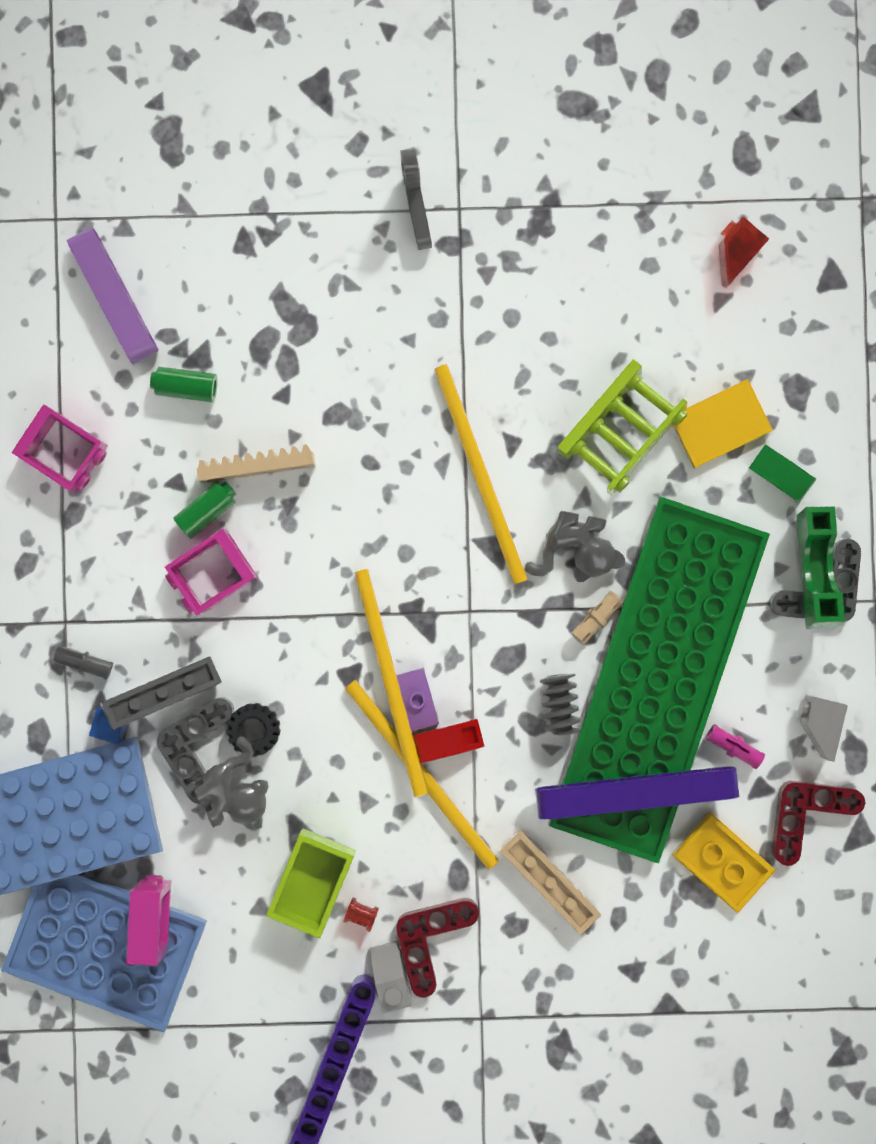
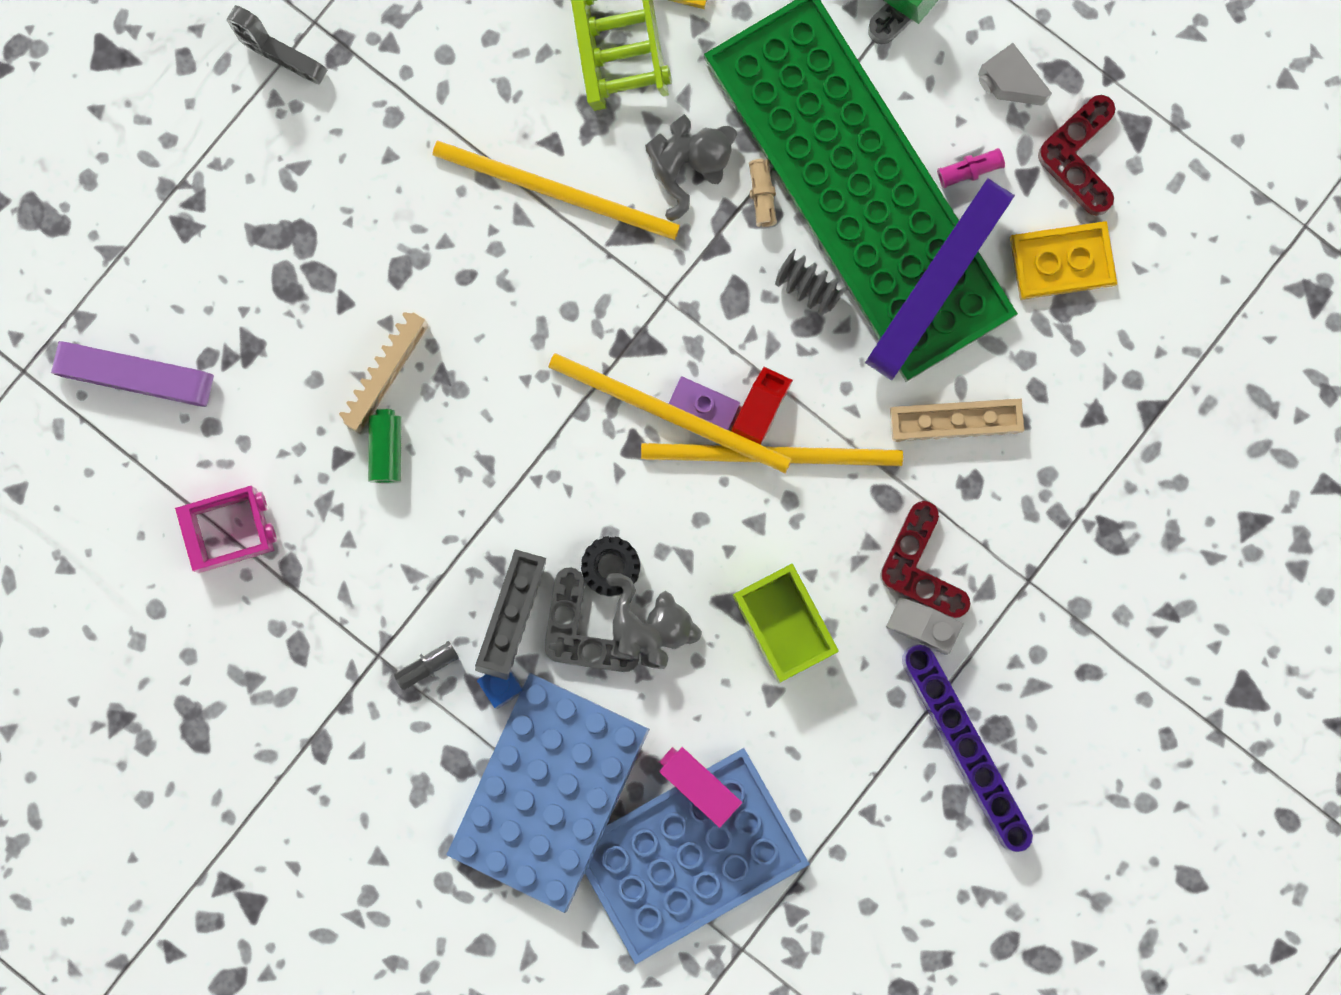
camera: 50 degrees left, 5 degrees down
(184, 384) = (261, 376): green brick -> none
(231, 549) = (447, 455): dark pink window -> none
(361, 914) = (849, 606): clear red bush -> none

